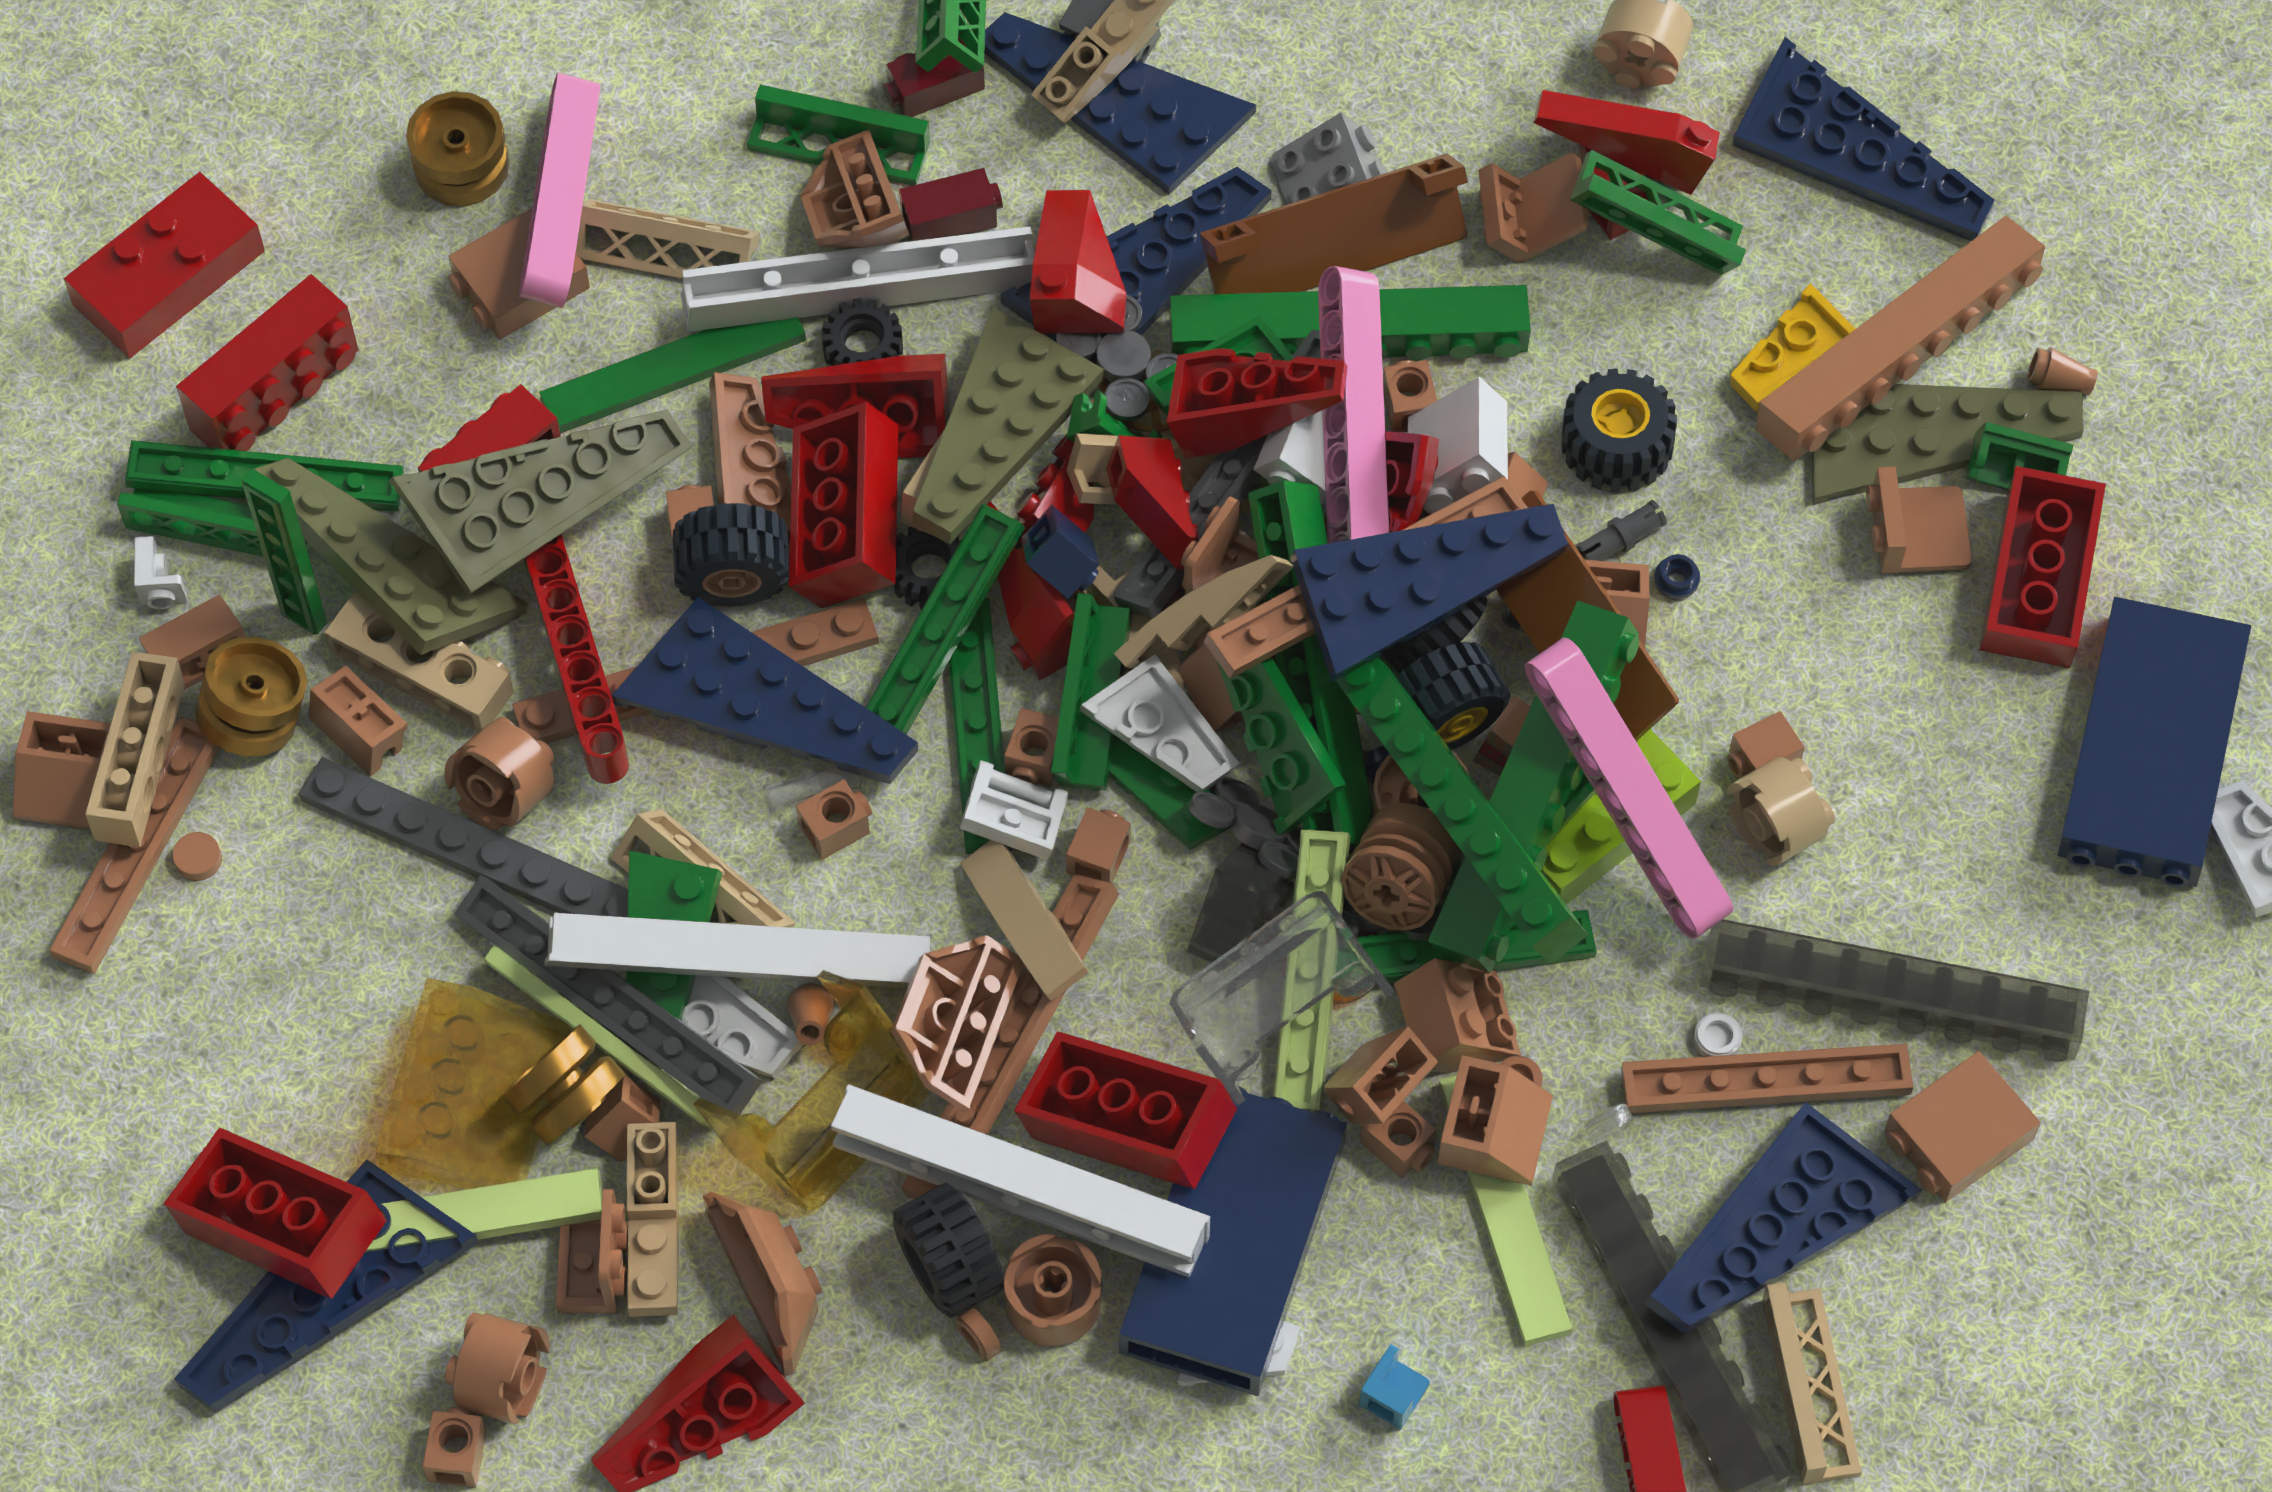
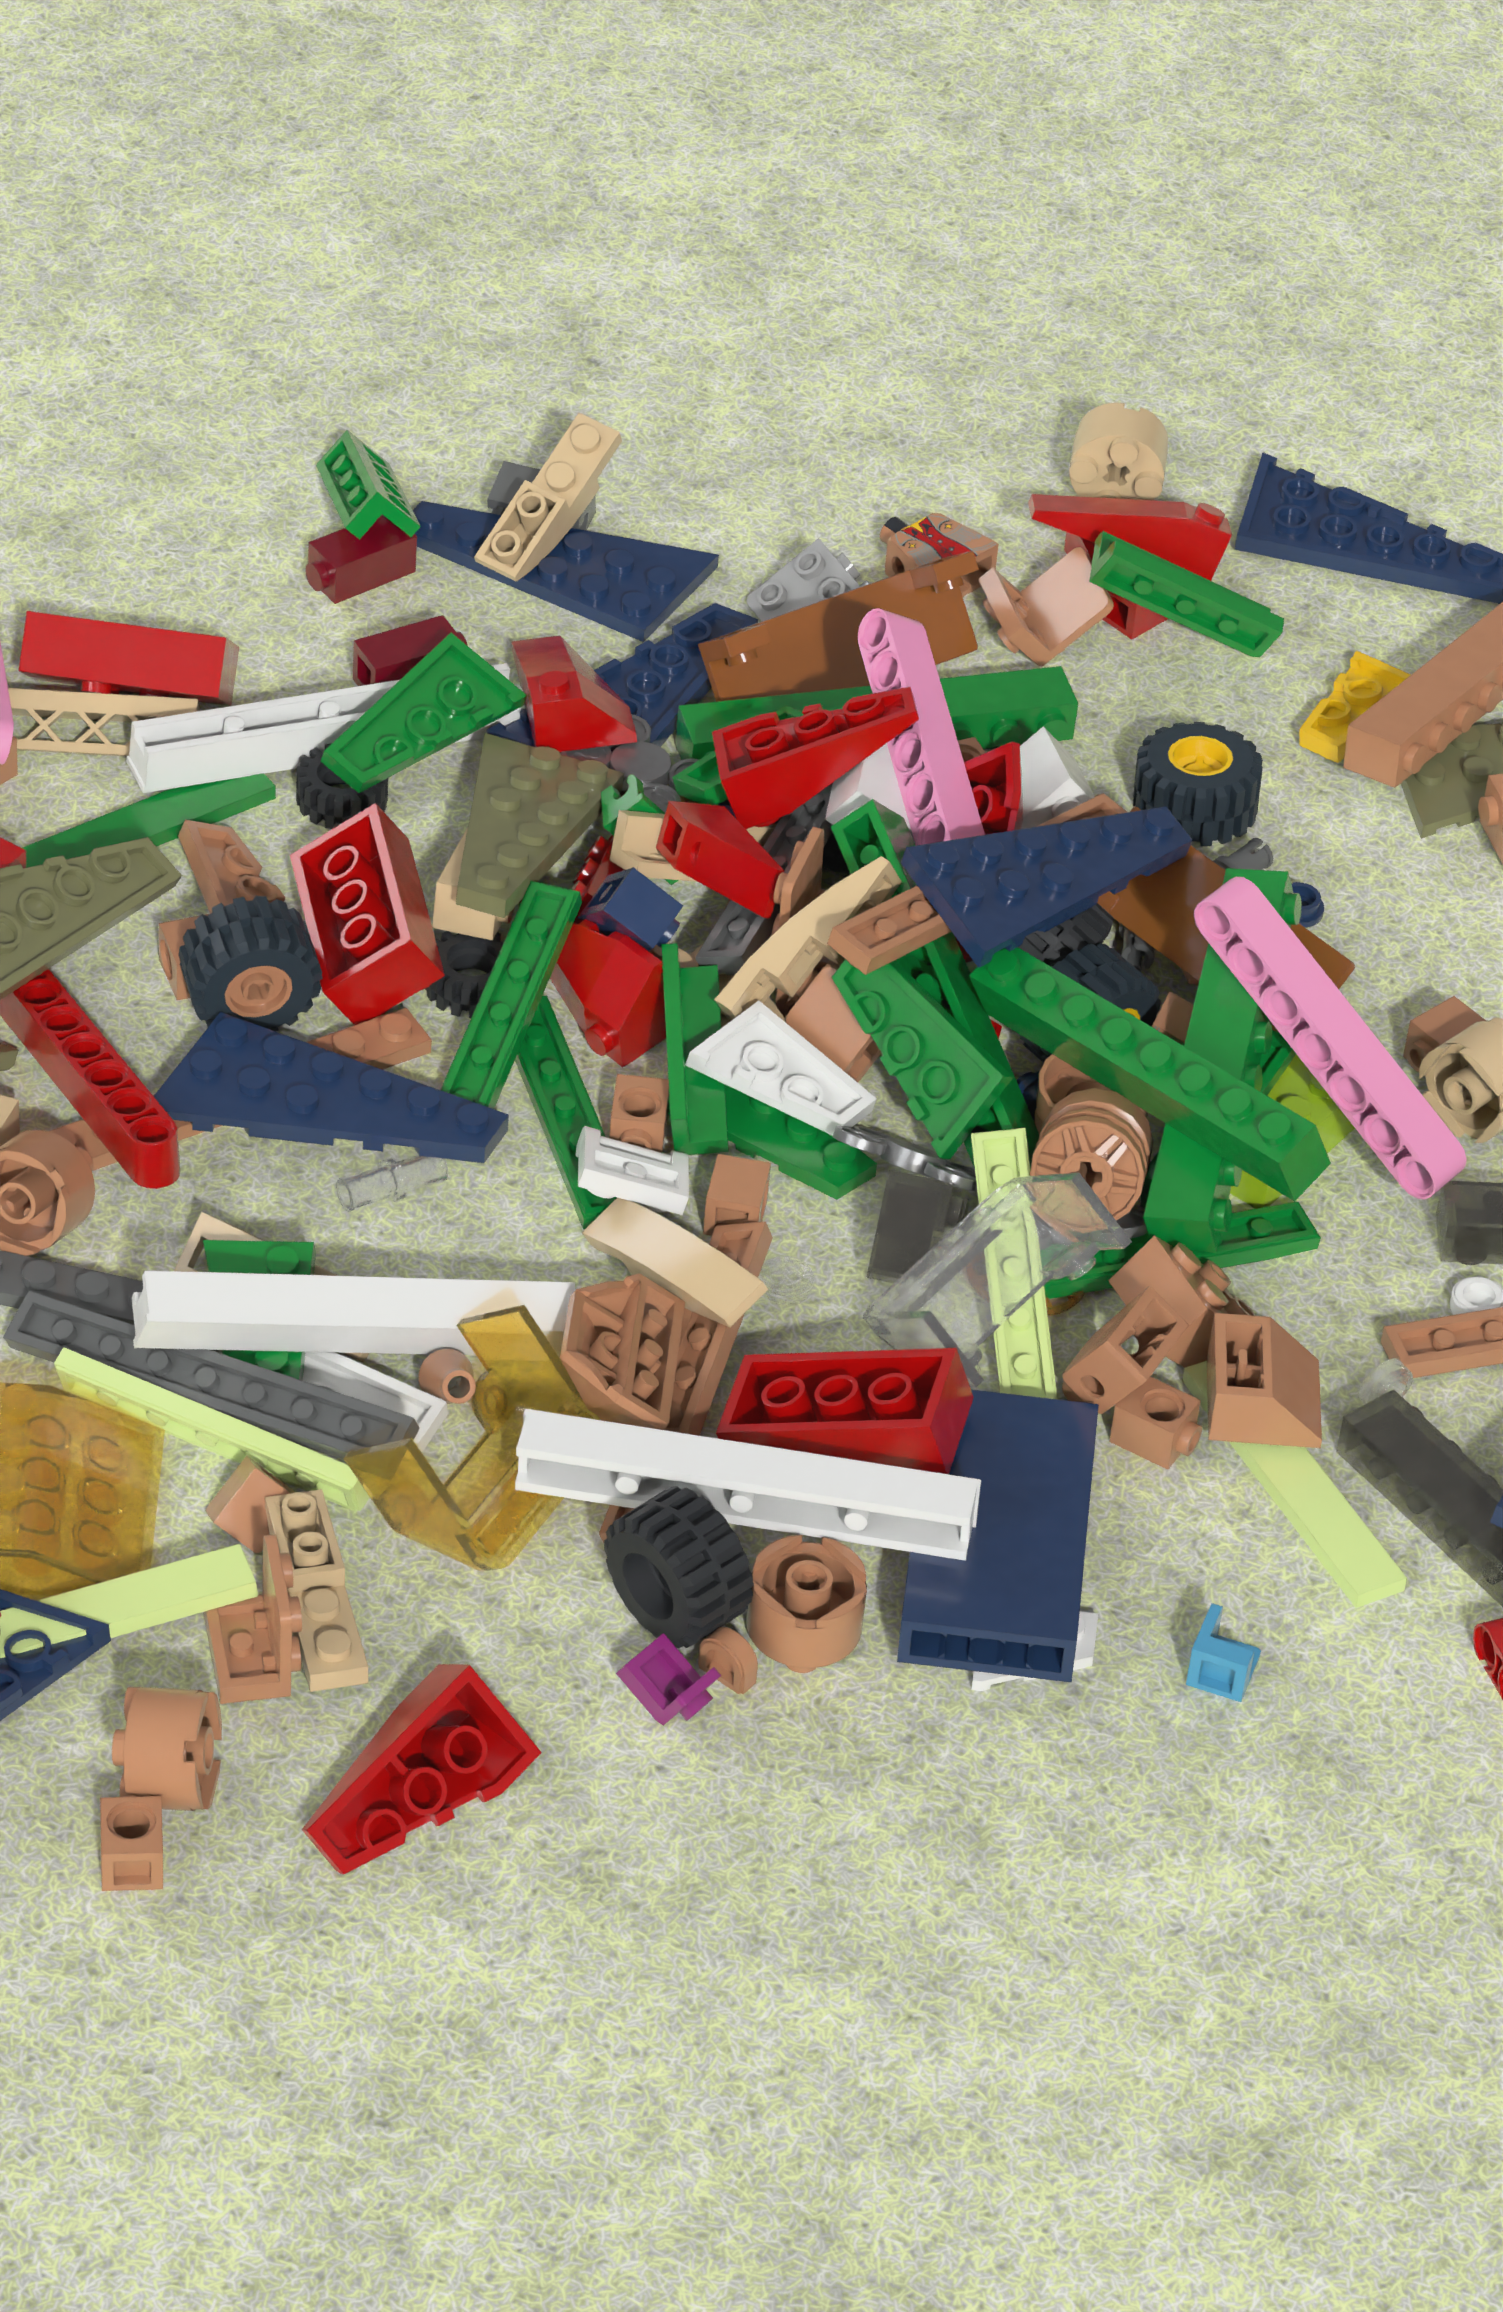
camera: 15 degrees left, 20 degrees down
(567, 1088) = (189, 1469): pearl gold wheel -> none
(699, 188) = (128, 658): none -> red brick
(768, 1273) = (456, 1615): nougat wedge -> none
(828, 836) = (426, 1203): nougat brick -> none
(840, 121) = (270, 607): green fence -> none
(852, 198) = (309, 653): nougat wedge -> none
(902, 387) = (417, 809): red wedge -> none
(922, 1349) = (667, 1681): none -> magenta bracket
(942, 284) = (424, 712): none -> green wing
(1452, 126) = (934, 539): none -> torso

